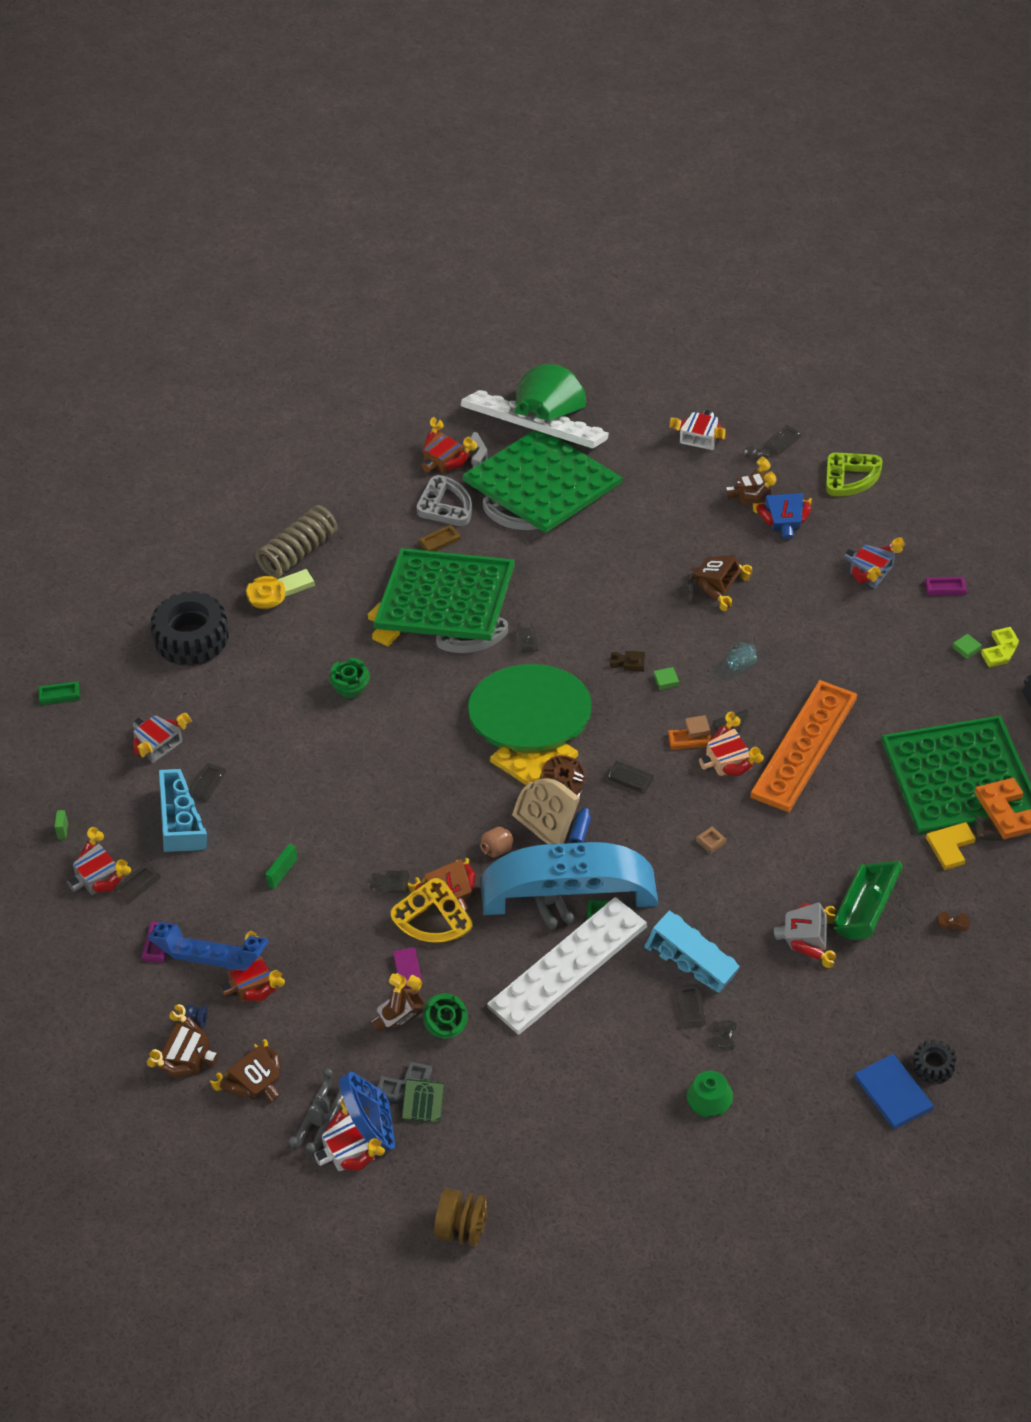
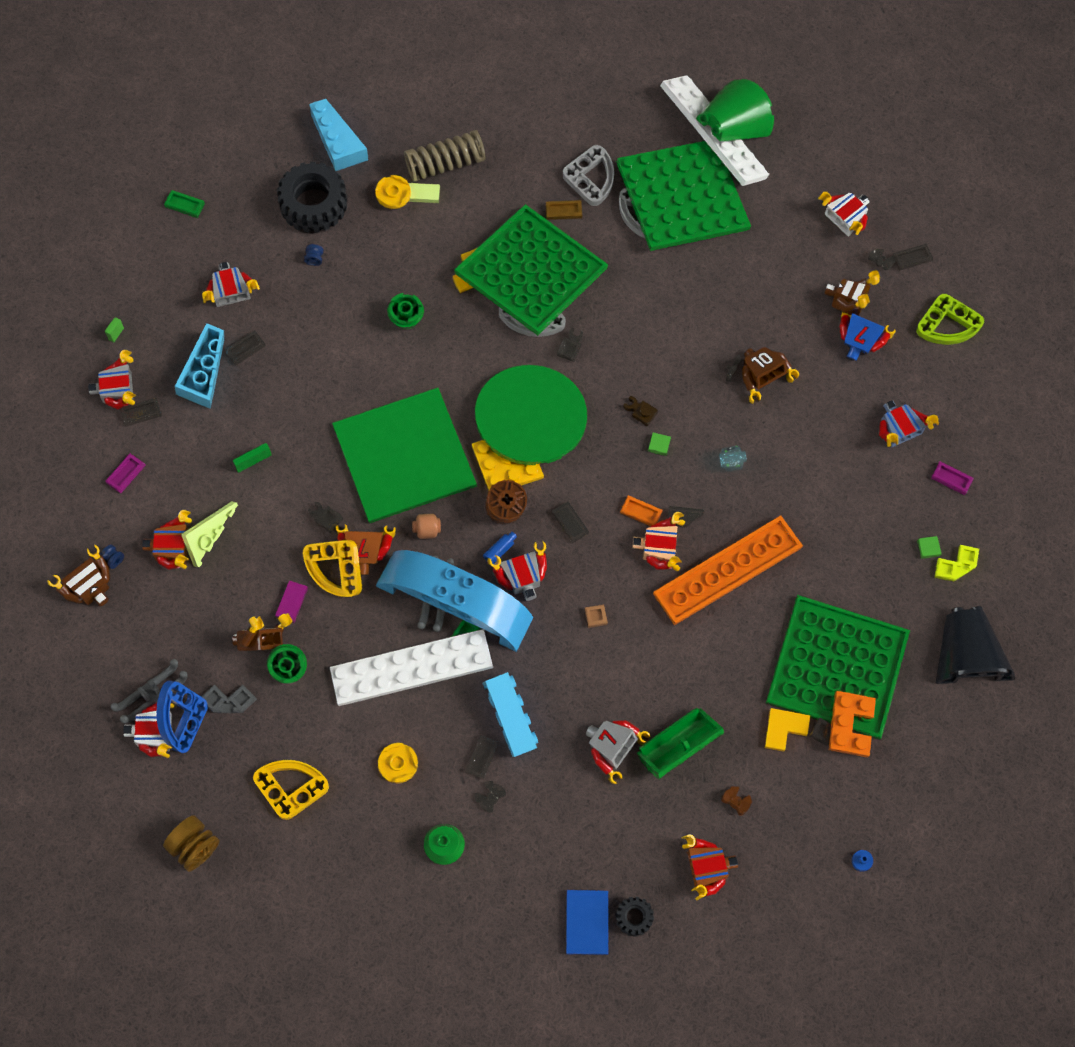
camera: 25 degrees right, 20 degrees up
(169, 939) = (148, 503): blue slope -> none
(176, 570) = (339, 140): none -> medium azure wedge
(223, 675) = (313, 255): none -> dark blue wheel
(252, 1074) = (122, 632): reddish brown torso -> none
(280, 949) = (205, 533): none -> yellowish green wing
(423, 1100) = (231, 723): clear green piece -> none
(430, 798) = (404, 455): none -> green tile
(444, 452) = (618, 123): torso -> none
(480, 453) = (647, 136): light grey slope -> none
(530, 1137) = (291, 800): none -> yellow beam
(546, 809) = (477, 523): tan plate -> none
(613, 1058) = (397, 763): none -> yellow tile
(618, 829) = (522, 572): none -> torso
(697, 726) = (651, 506): medium nougat tile -> none
(967, 984) = (707, 865): none -> torso

